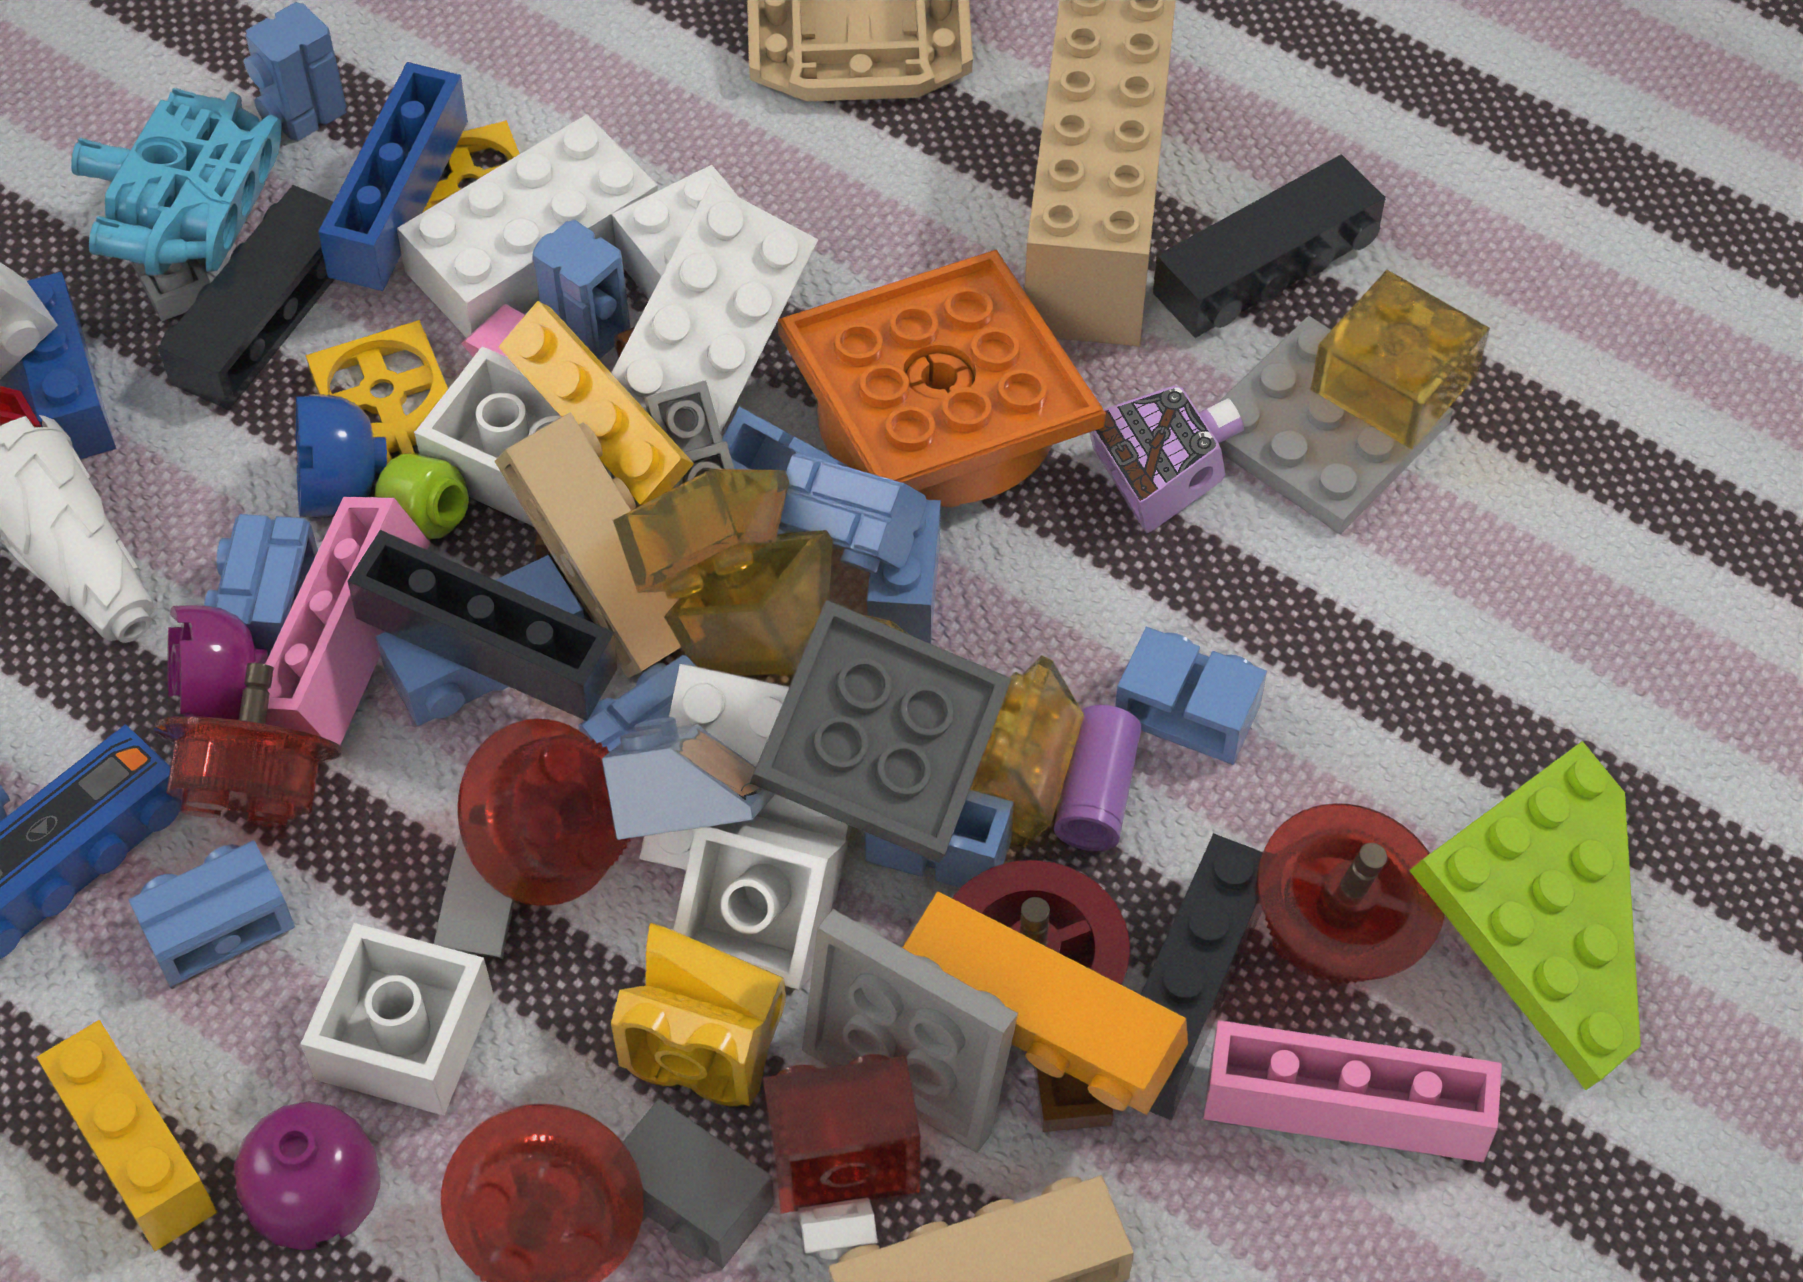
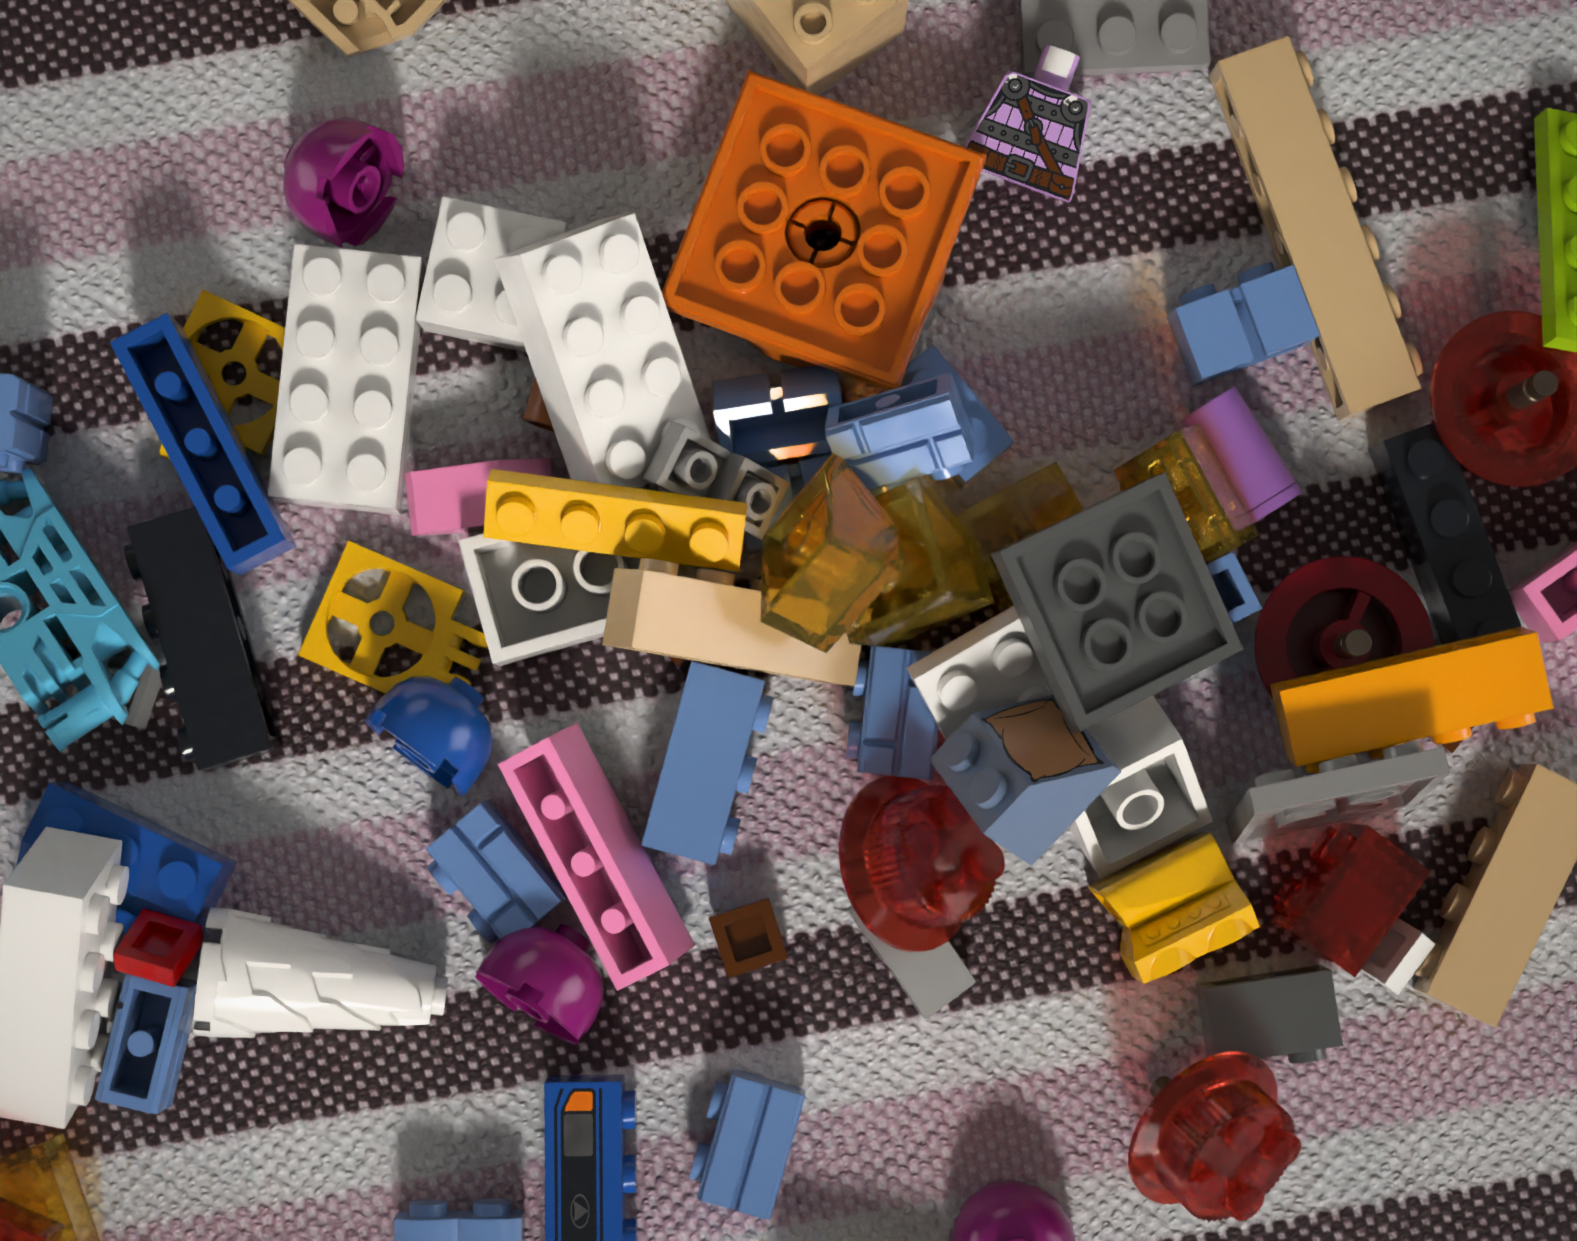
camera: 45 degrees left, 30 degrees up
(245, 761) = (666, 1030): clear red piece -> none
(378, 779) = (748, 937): none -> reddish brown plate
(398, 1018) = (971, 1098): white brick -> none
(427, 490) = (534, 696): lime head -> none
(483, 625) = (738, 780): black brick -> none
(583, 284) = (461, 408): medium blue brick -> none
(665, 121) = (340, 179): none -> magenta cylinder
(1312, 678) = (1315, 226): none -> tan brick

